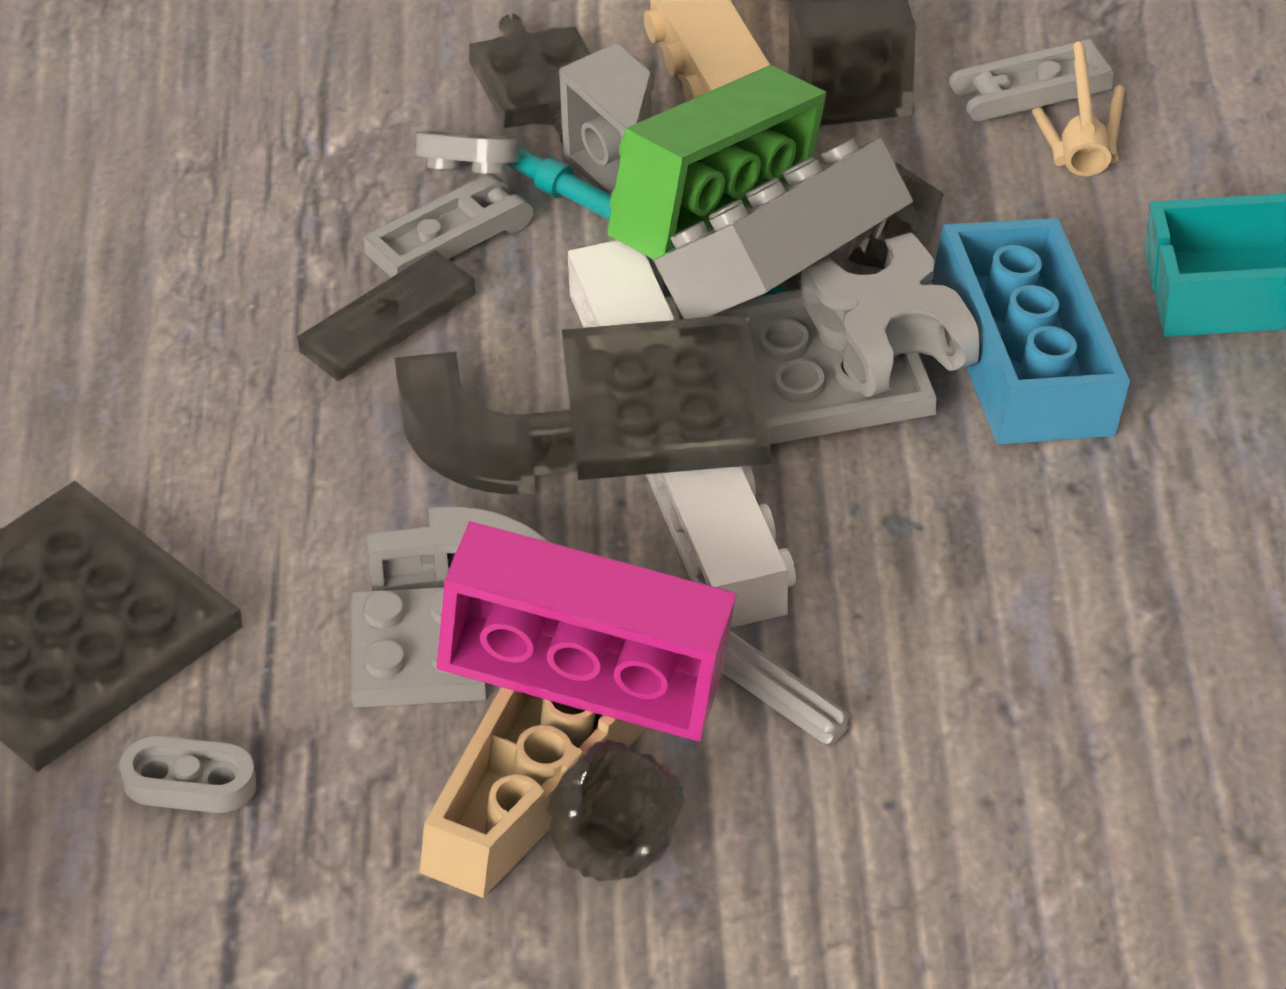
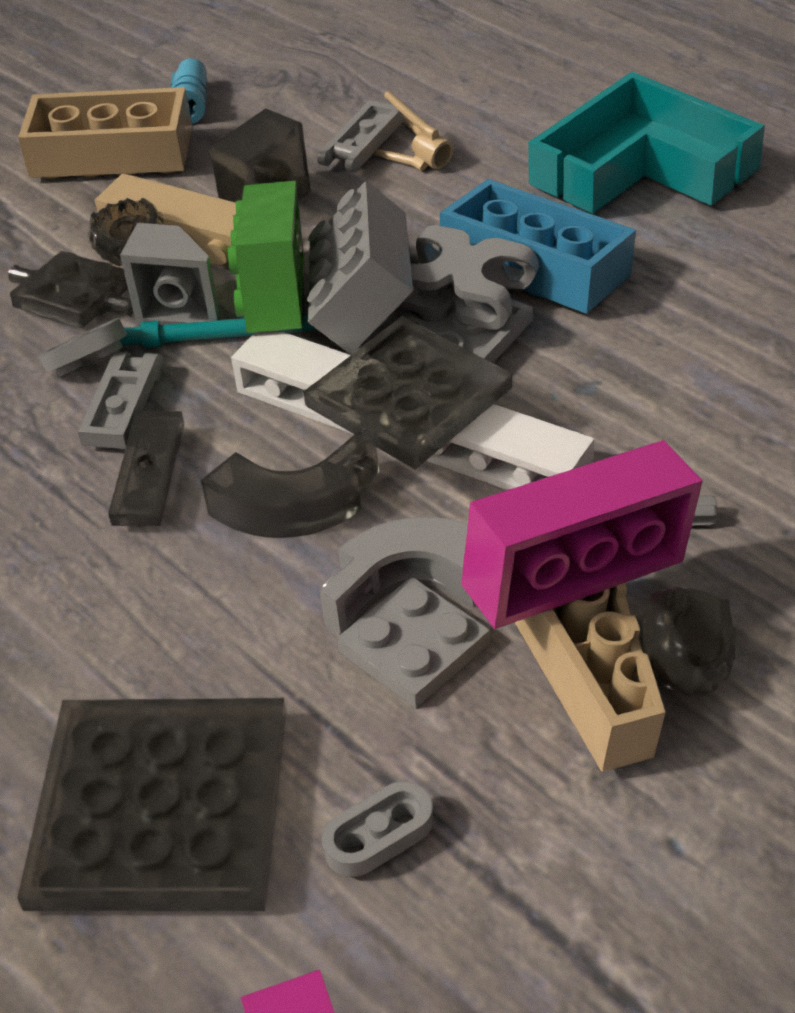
camera: 40 degrees left, 0 degrees up
(641, 29) = (115, 223): none -> clear smoke hair

